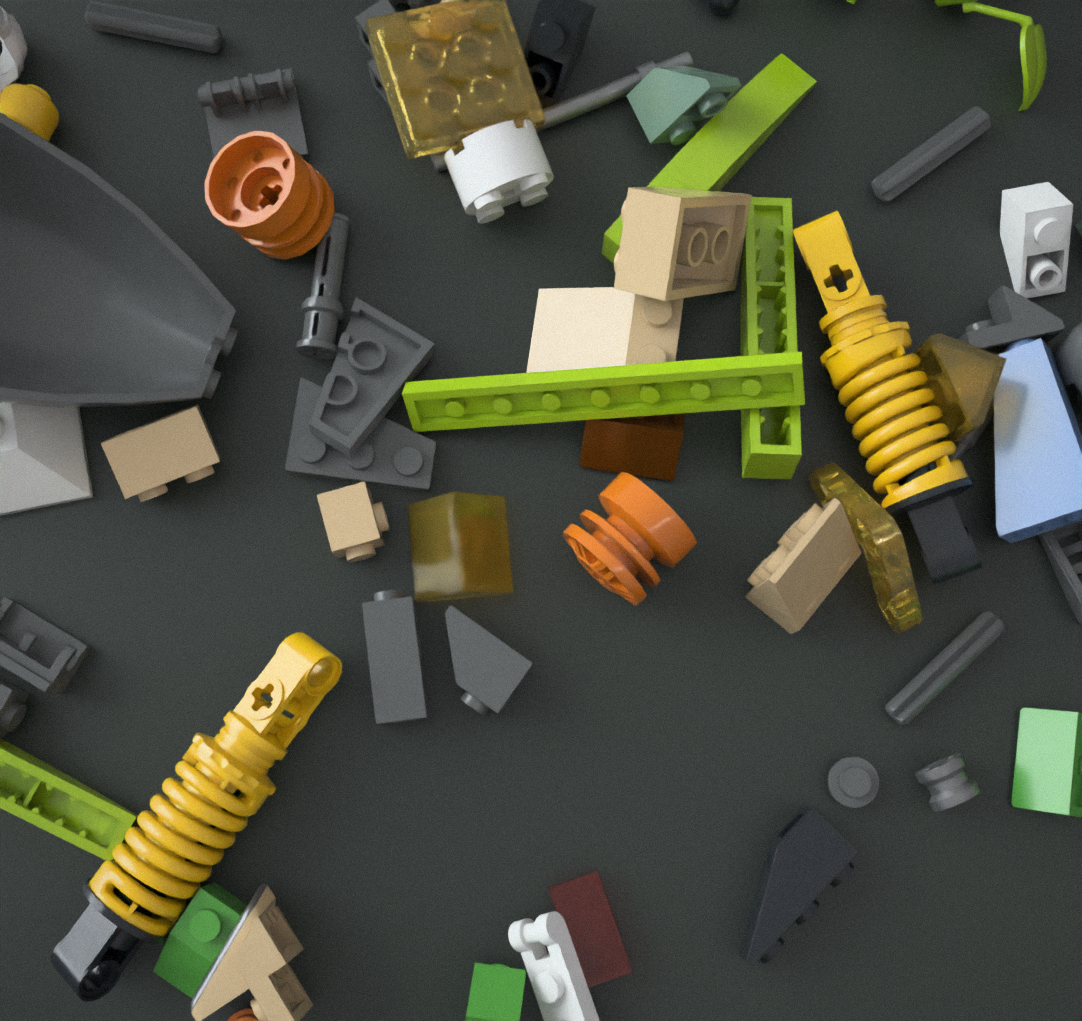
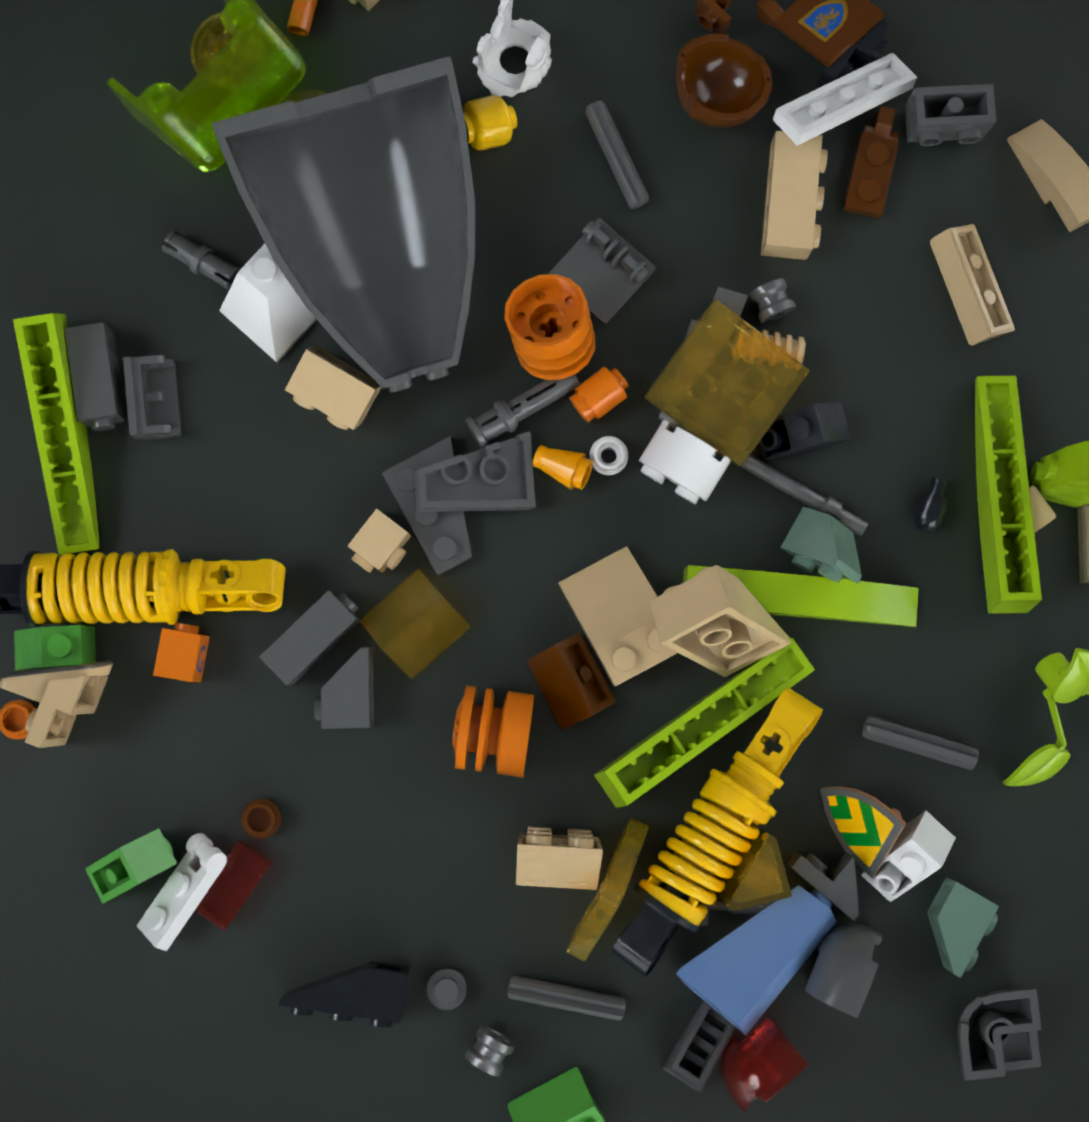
camera: 55 degrees right, 5 degrees up
(311, 806) = (181, 653): none -> orange brick
(371, 205) = (599, 394): none -> orange brick
(415, 289) = (565, 466): none -> light orange cone
(438, 229) = (617, 447): none -> white plate
(542, 848) = (261, 818): none -> reddish brown plate
(607, 392) = (579, 647): lime plate -> none
(975, 257) = (862, 825): none -> shield

